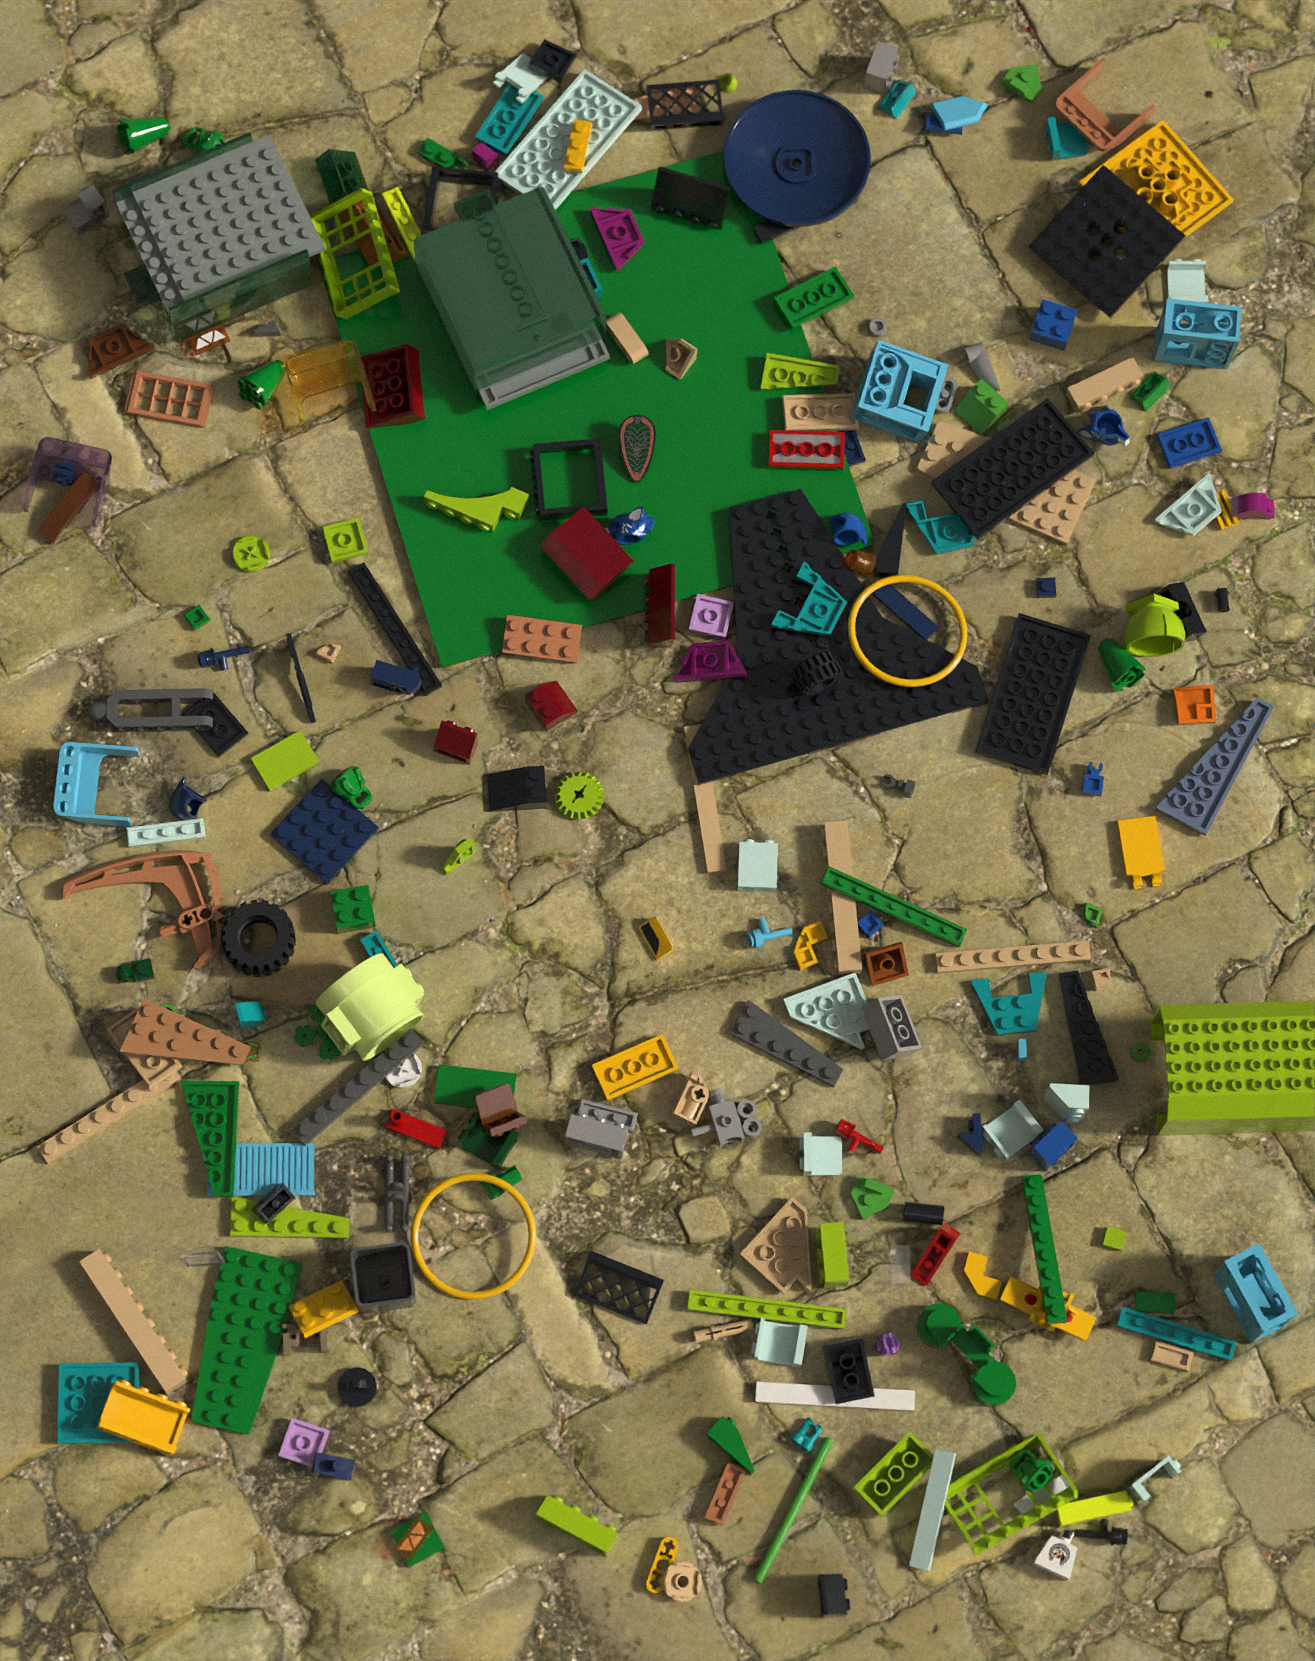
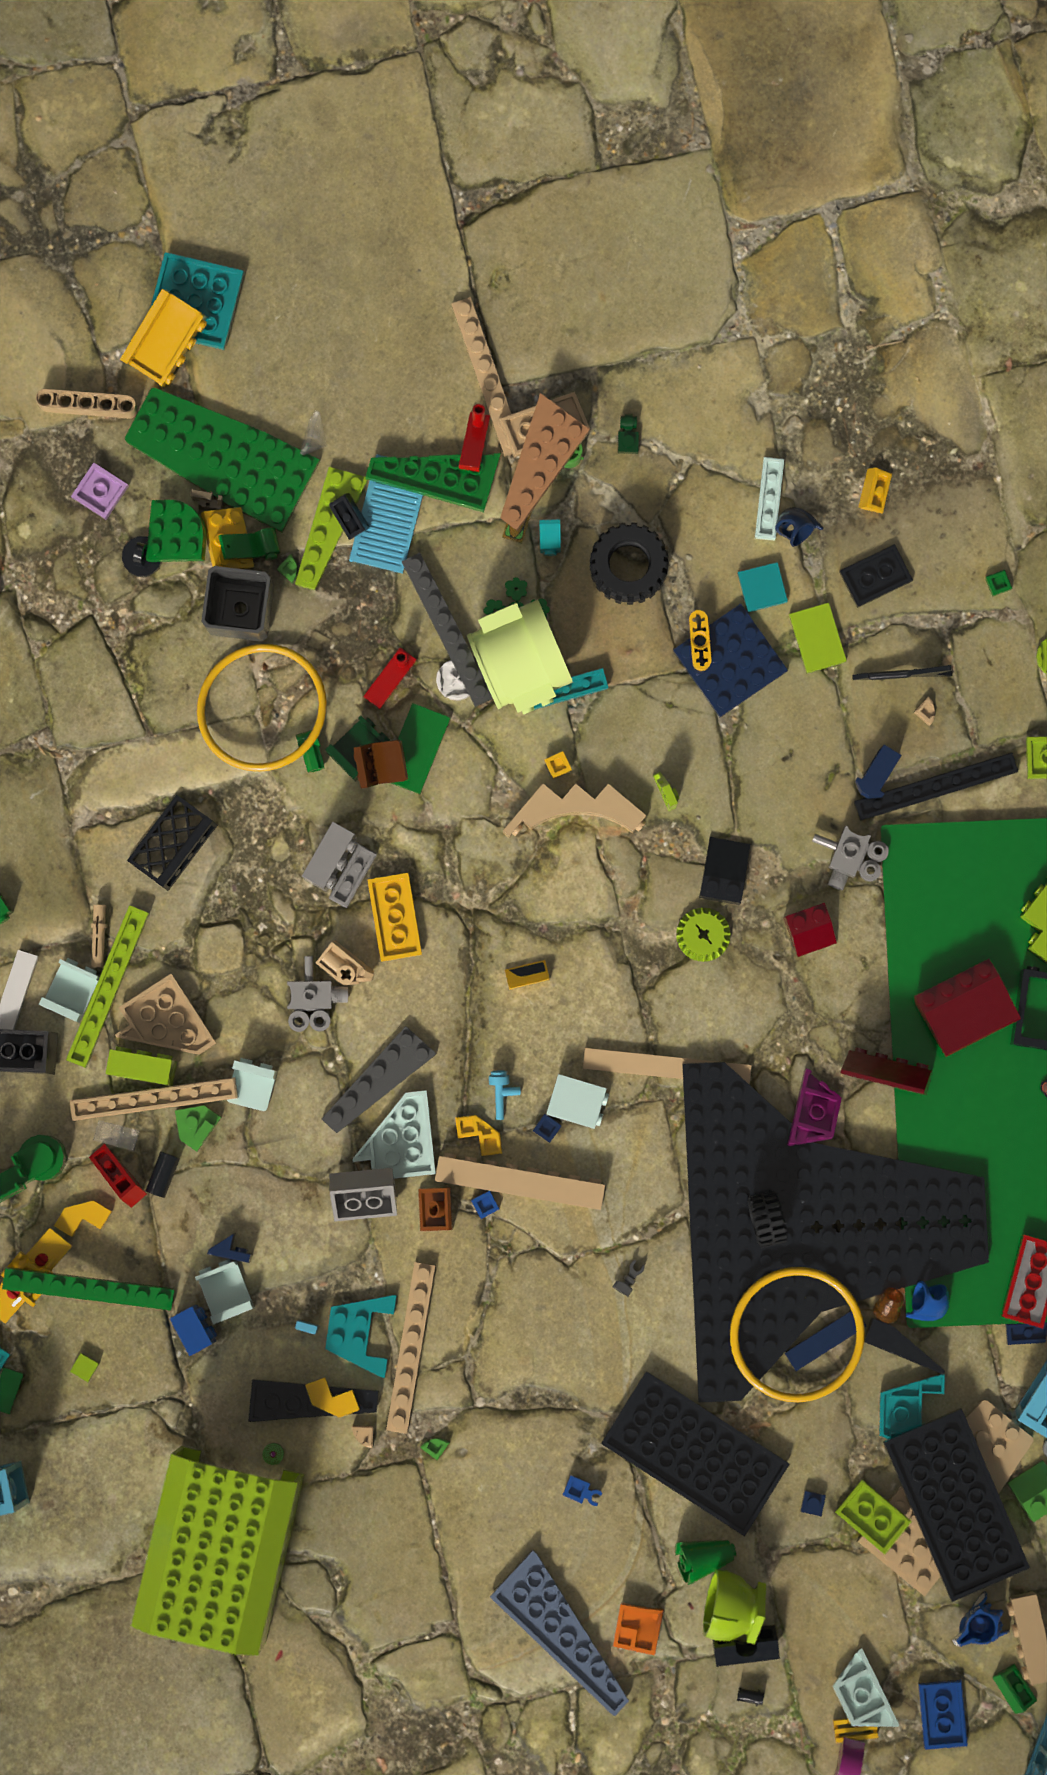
camera: 115 degrees right, 10 degrees up
(79, 782) = (843, 419): medium azure windscreen -> none
(106, 711) = (917, 465): dark grey piece -> none
(133, 1321) = (266, 352): tan brick -> none
(143, 740) = (875, 490): none -> yellow slope
(174, 1106) = (474, 439): none -> red piece
(180, 882) = (710, 501): nougat piece -> none
(209, 658) = (948, 583): dark blue piece -> none
(218, 1468) = (78, 399): none -> tan beam
(250, 819) = (762, 587): none -> teal tile
(323, 1284) = (253, 545): none -> green door
(328, 1356) = (175, 533): none -> green plate
(329, 859) = (706, 655): none -> yellow beam
(332, 1466) = (68, 513): dark blue tile -> none
(335, 1248) = (289, 569): none -> bright green tile
(350, 785) = (772, 697): green piece -> none
(353, 909) = (637, 668): green brick -> none
(397, 1193) = (325, 642): dark grey piece -> none
(456, 741) = (790, 817): dark red slope -> none
(458, 958) = (557, 765): none -> yellow plate
(476, 686) = (850, 855): none -> light grey piece
(498, 958) = (547, 805): none -> tan arch
(541, 638) = (885, 938): nougat plate -> none
(630, 526) = (987, 1063): blue piece -> none
(711, 616) = (867, 1126): lavender plate -> none
(787, 886) = (547, 1128): none -> dark blue plate
(819, 611) = (842, 1244): teal wing -> none
(846, 1130) = (269, 1118): red piece -> none
(858, 1240) = (154, 1099): none -> tan tile
(887, 1344) = (37, 1099): medium lavender gear -> none
(893, 906) = (495, 1233): green tile -> none
(1042, 534) = (873, 1517): none -> lime tile
(1068, 1100) = (232, 1361): light aqua slope -> none
(1079, 1018) = (322, 1398): none -> yellow tile
(1141, 850) = (492, 1521): yellow tile -> none

